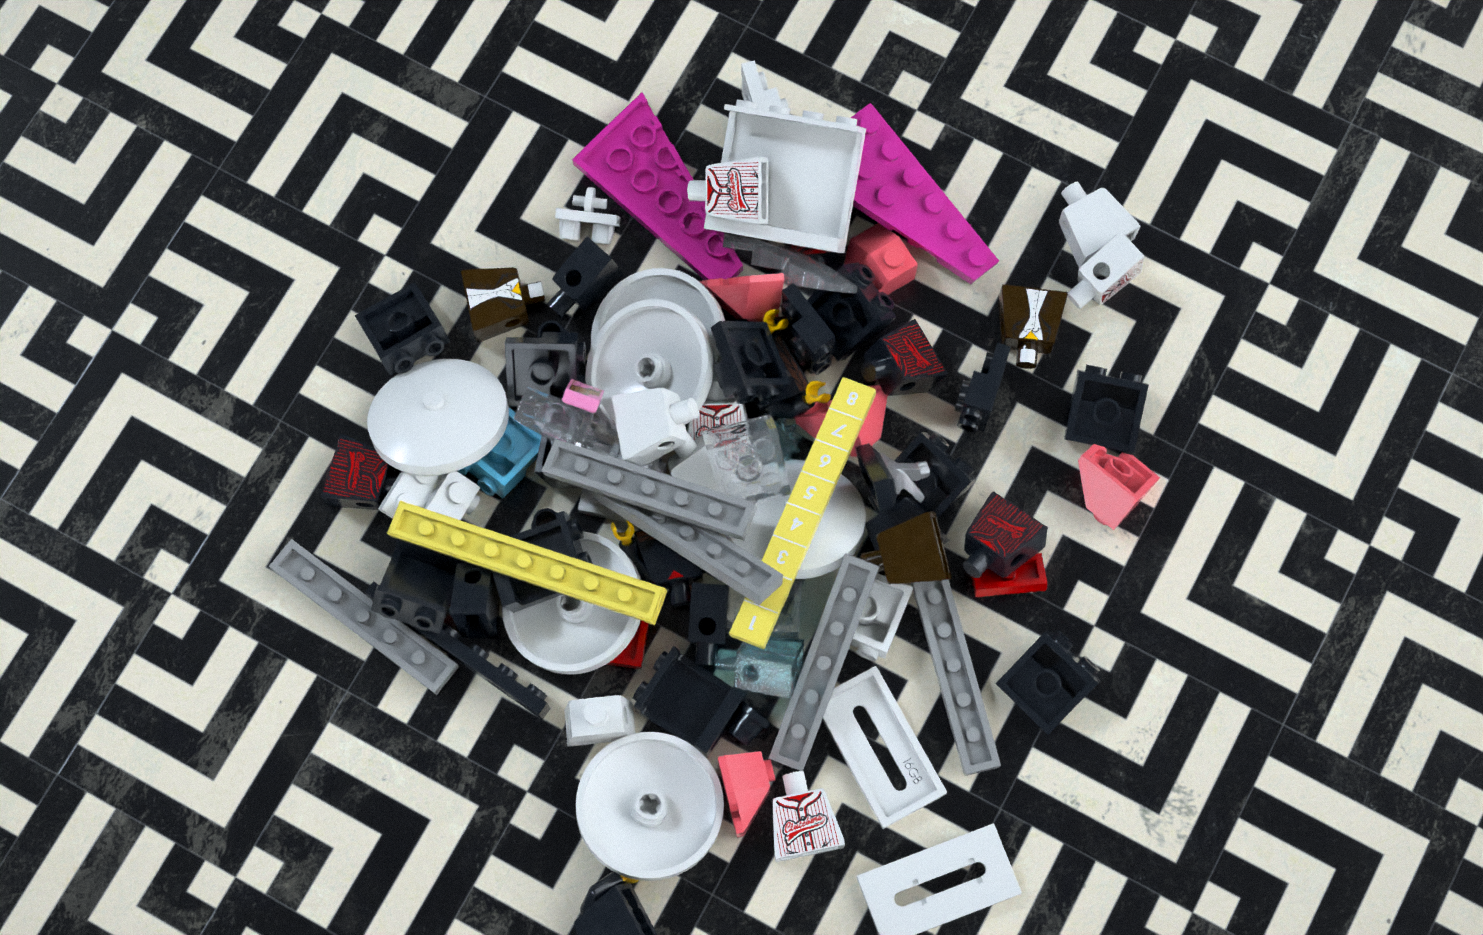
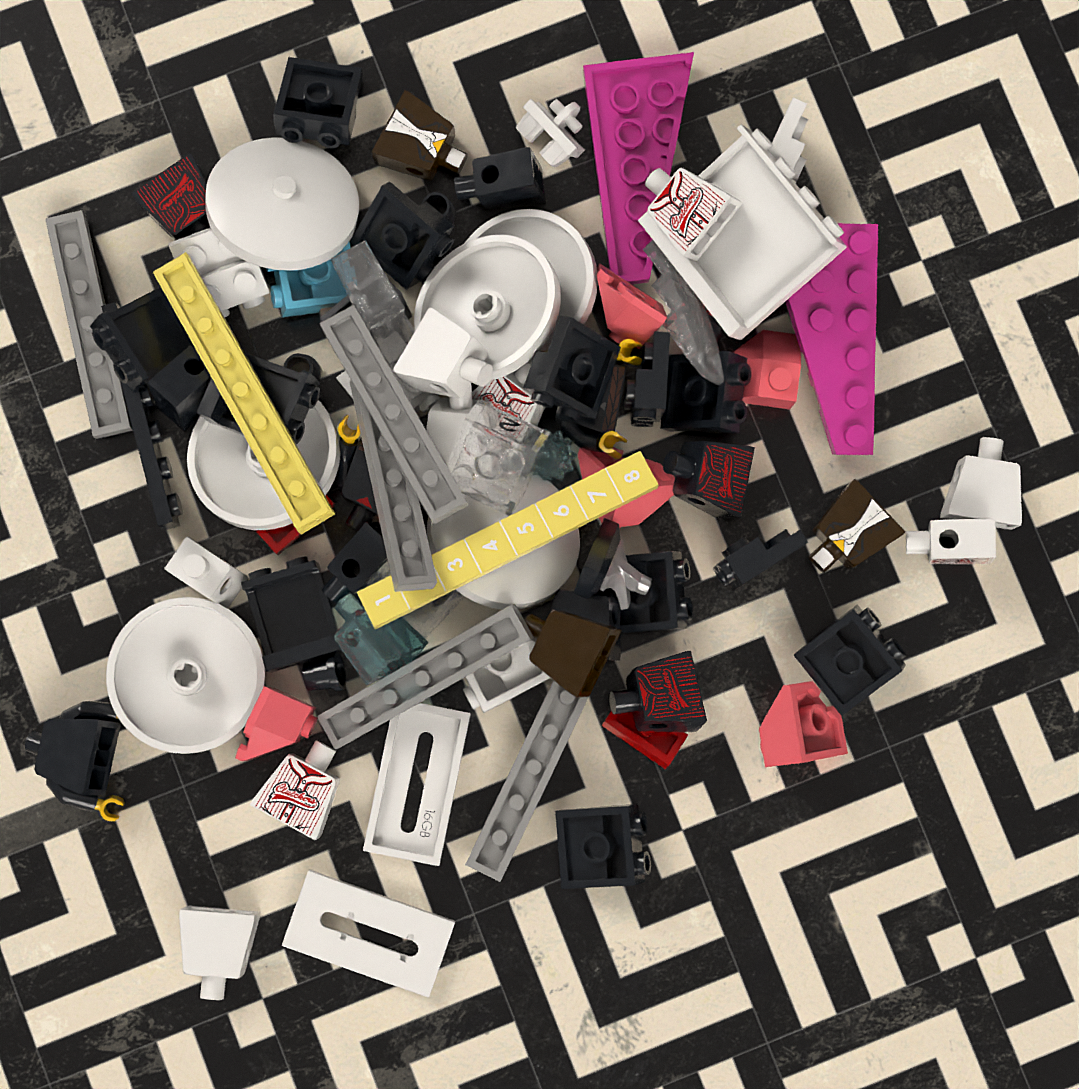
camera: 35 degrees right, 10 degrees up
(582, 396) = (408, 286): bright pink tile -> none

